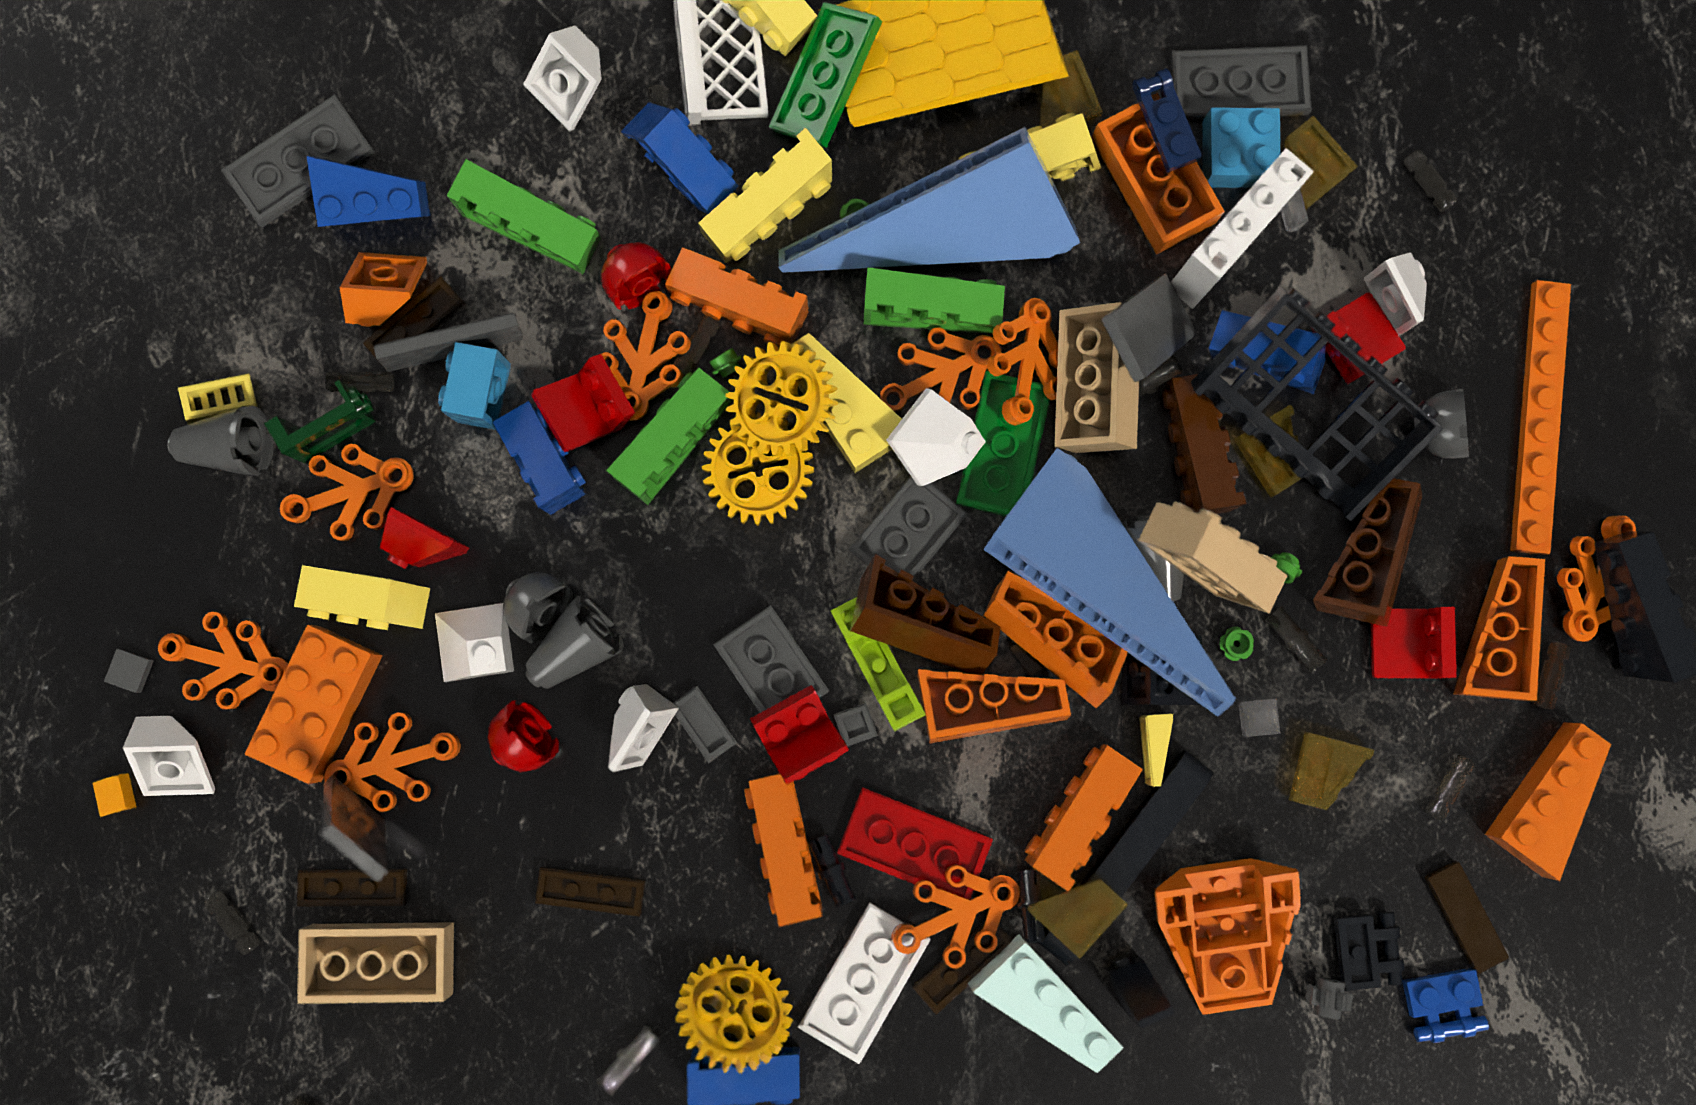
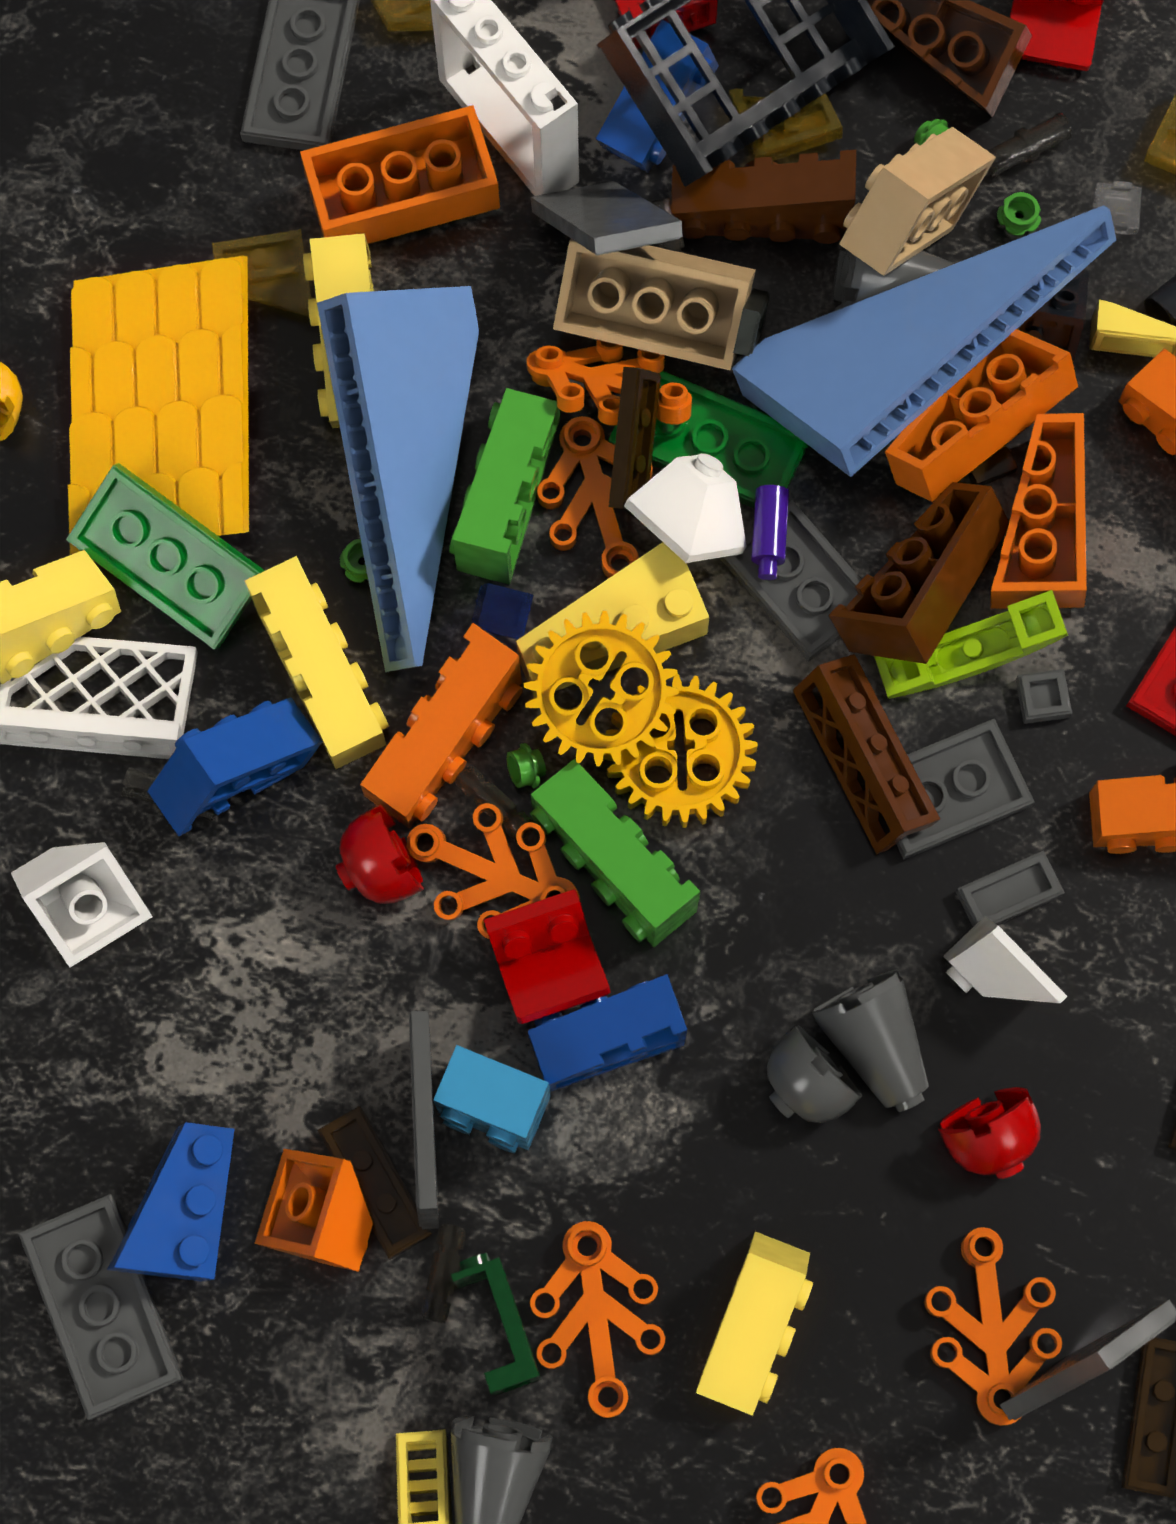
camera: 75 degrees left, 10 degrees down
(313, 704) = (895, 1417): orange brick -> none
(416, 542) = (693, 1224): red slope -> none
(474, 642) = (845, 1179): white slope -> none
(523, 217) = (268, 990): bright green wedge -> none
(782, 602) = (868, 747): none -> reddish brown fence
(799, 735) = (1053, 760): red bracket -> none
(834, 320) = (502, 610): none -> clear blue panel
(936, 500) = (770, 529): none -> dark purple cylinder
(984, 384) = (634, 434): none -> dark brown tile
(1095, 454) = (751, 322): none -> pearl dark grey tile
(1167, 121) = (341, 145): dark blue plate -> none
(1239, 145) = (386, 75): dark azure brick -> none

